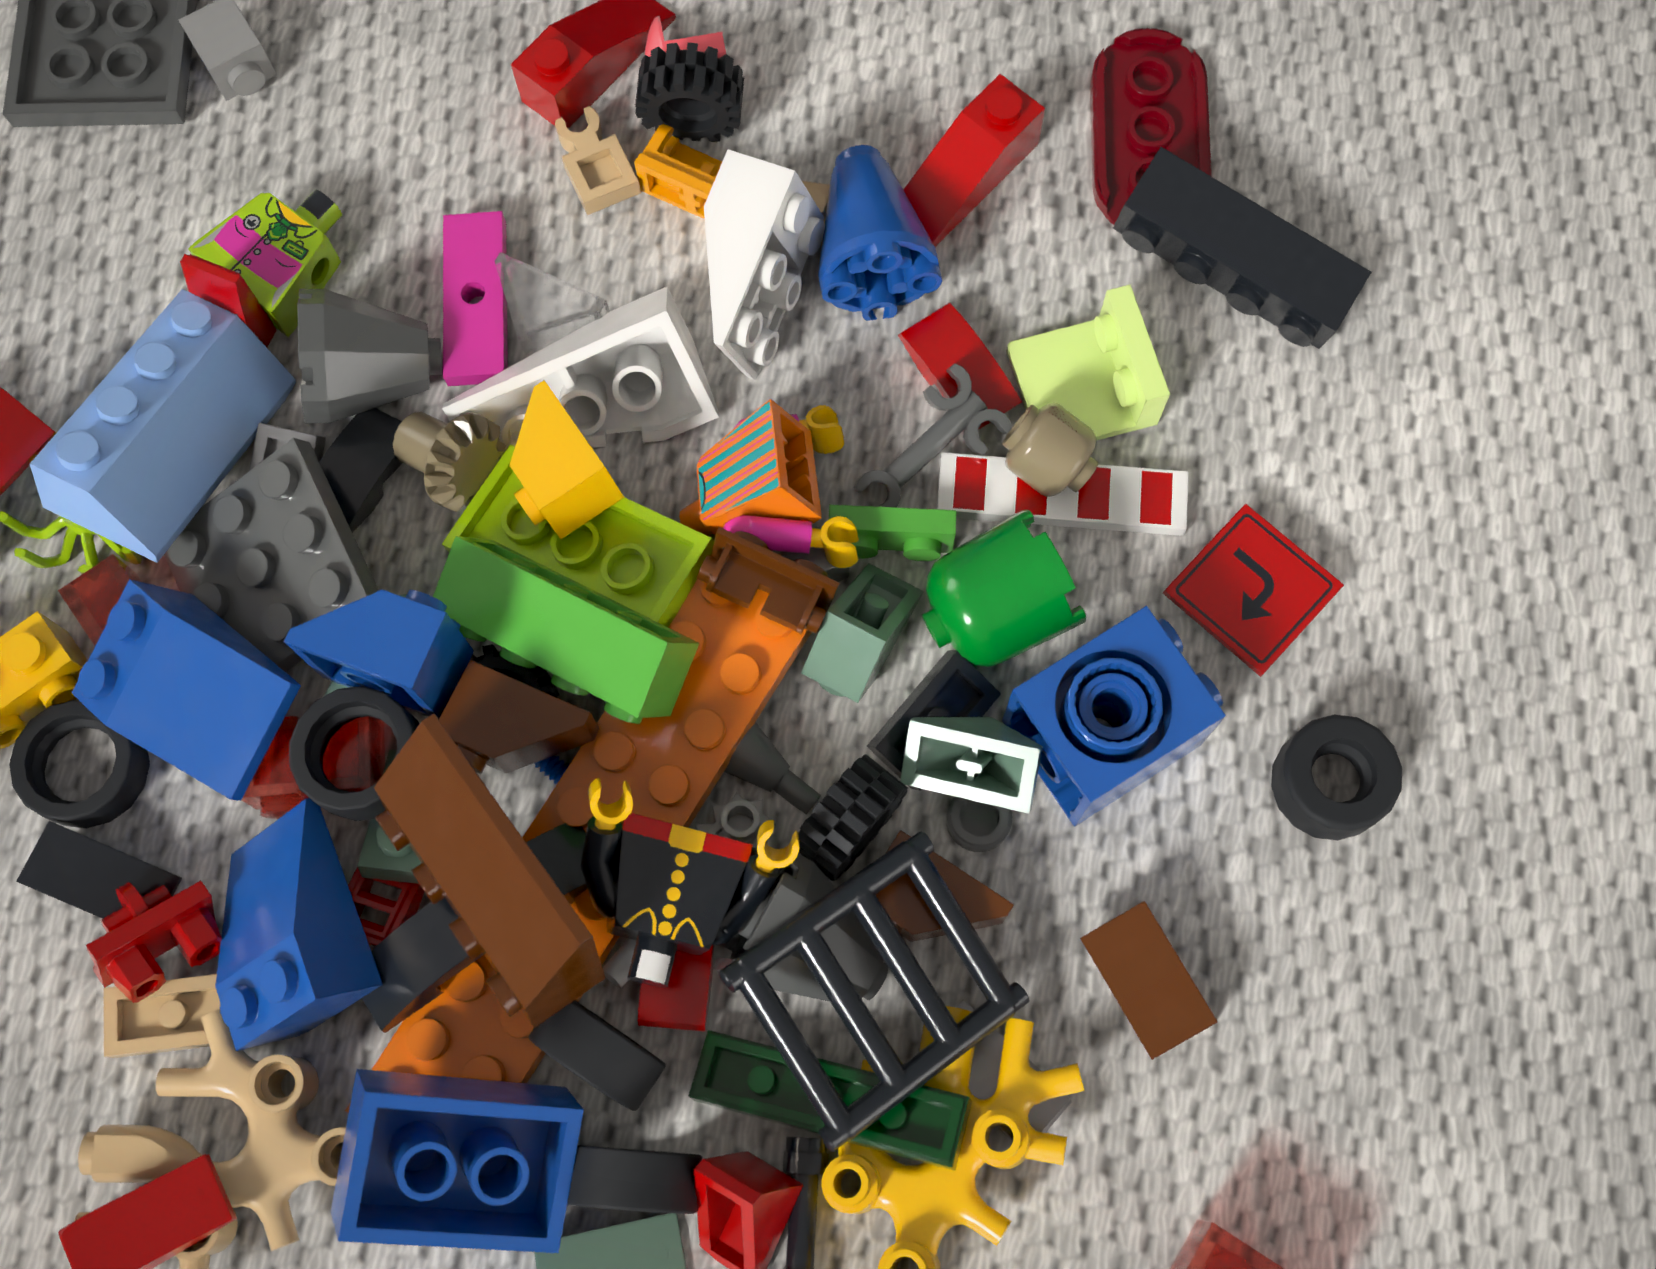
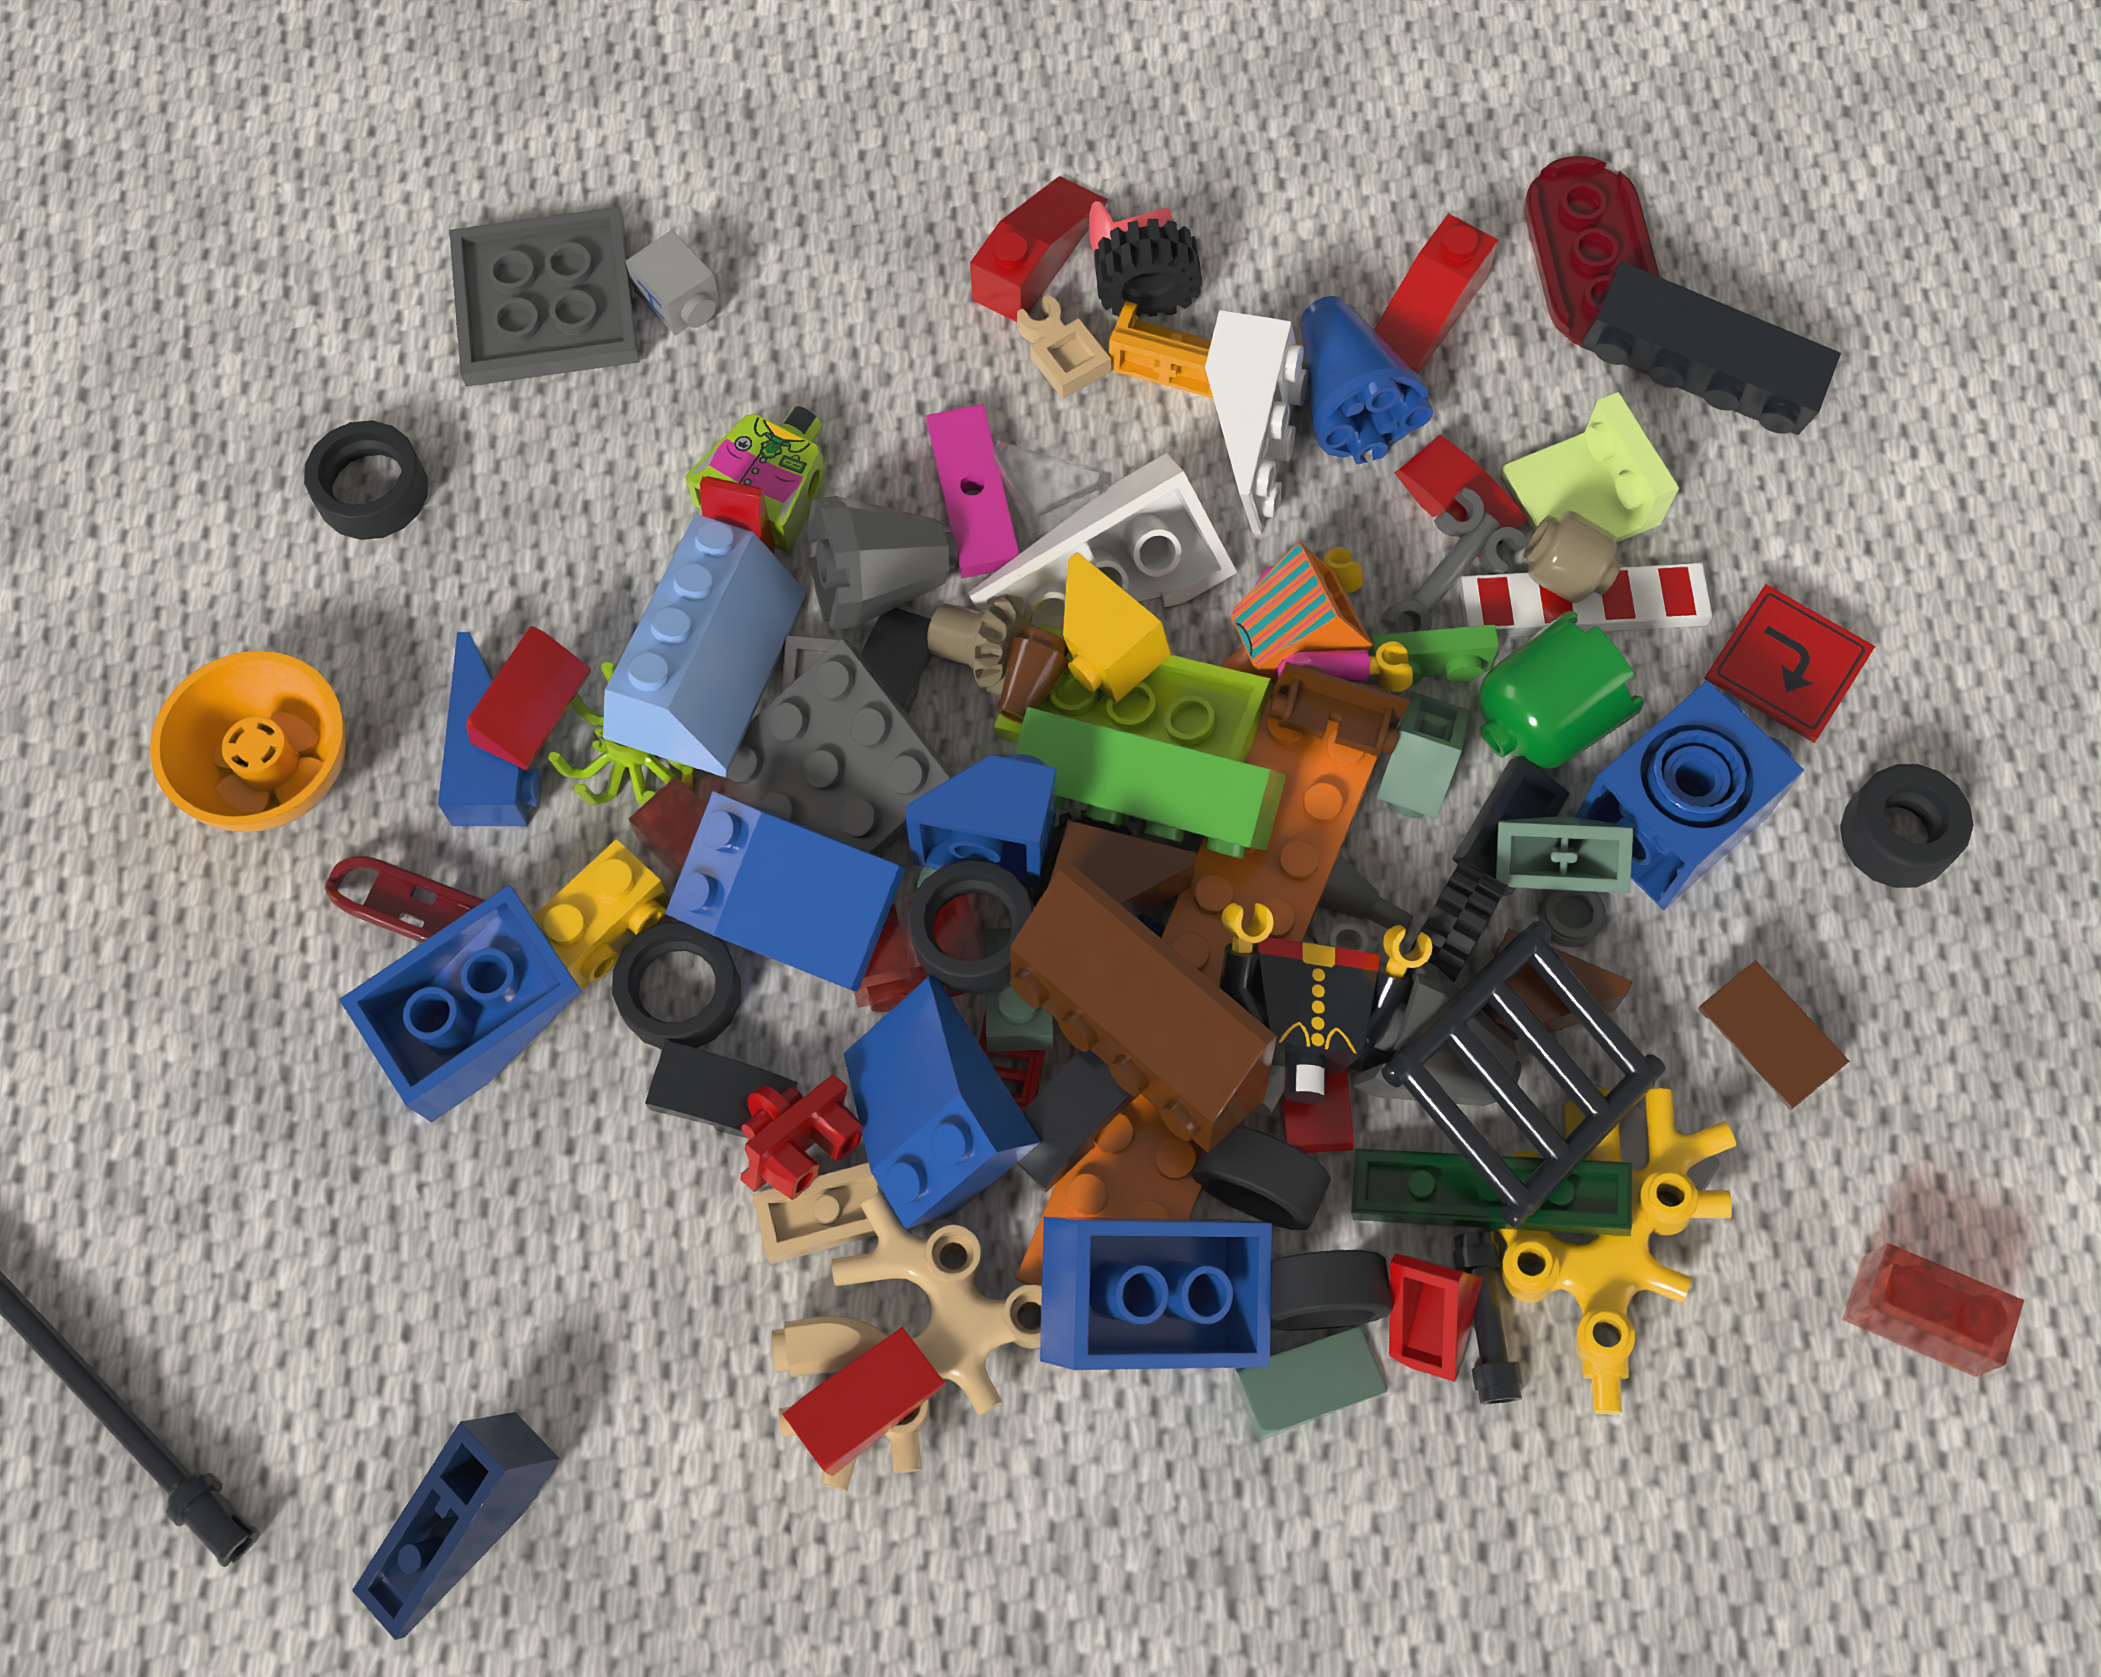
camera: 10 degrees left, 5 degrees down
(481, 496) = (1031, 672): none -> reddish brown cone

